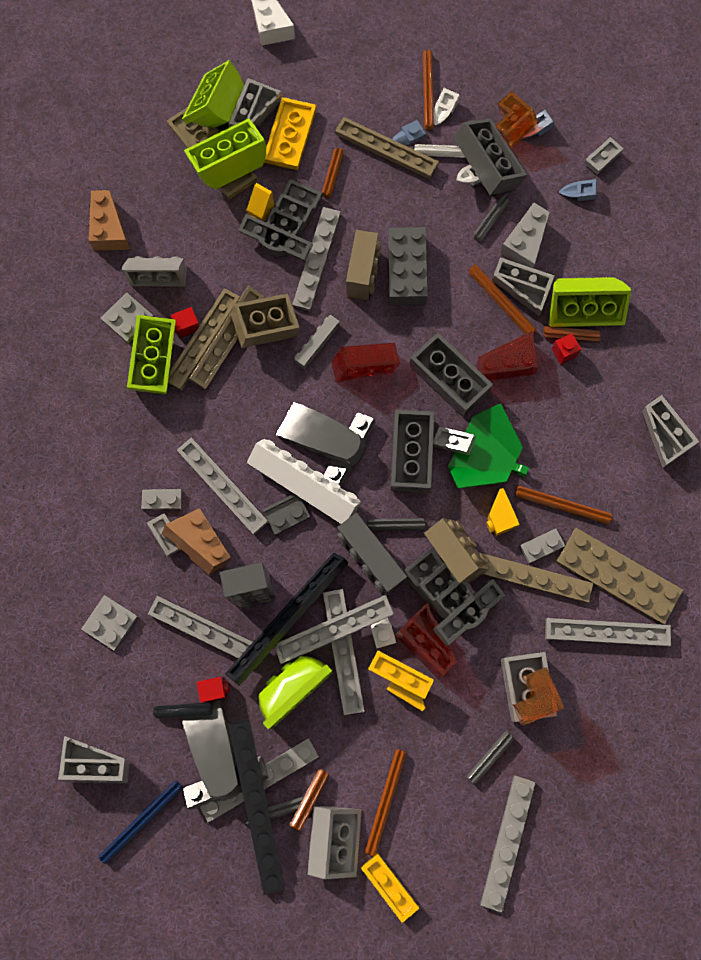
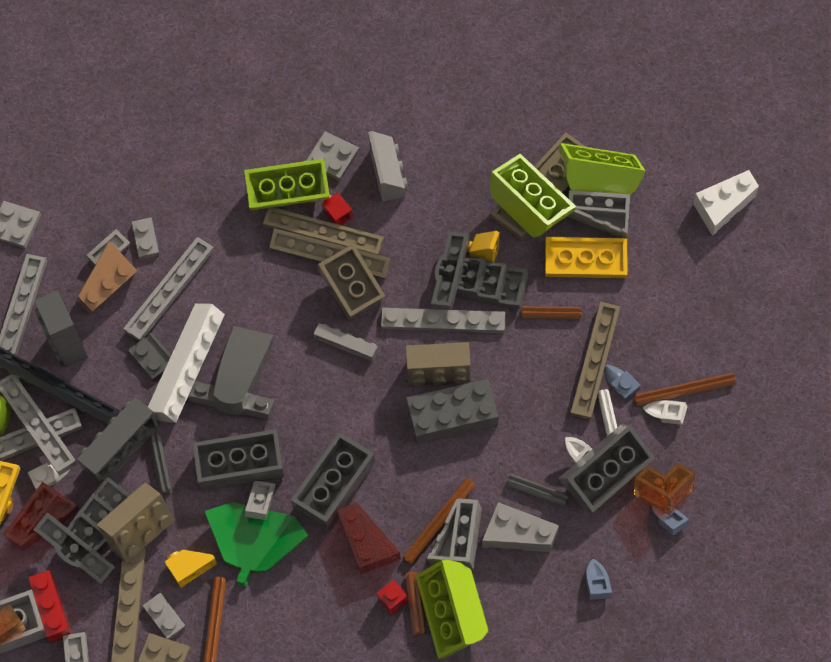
camera: 75 degrees right, 10 degrees down
(105, 223) = (430, 106): medium nougat wedge -> none
(364, 361) = (330, 393): clear red wedge -> none
(516, 645) = (50, 606): none -> red brick
(603, 156) = (650, 599): light grey plate -> none

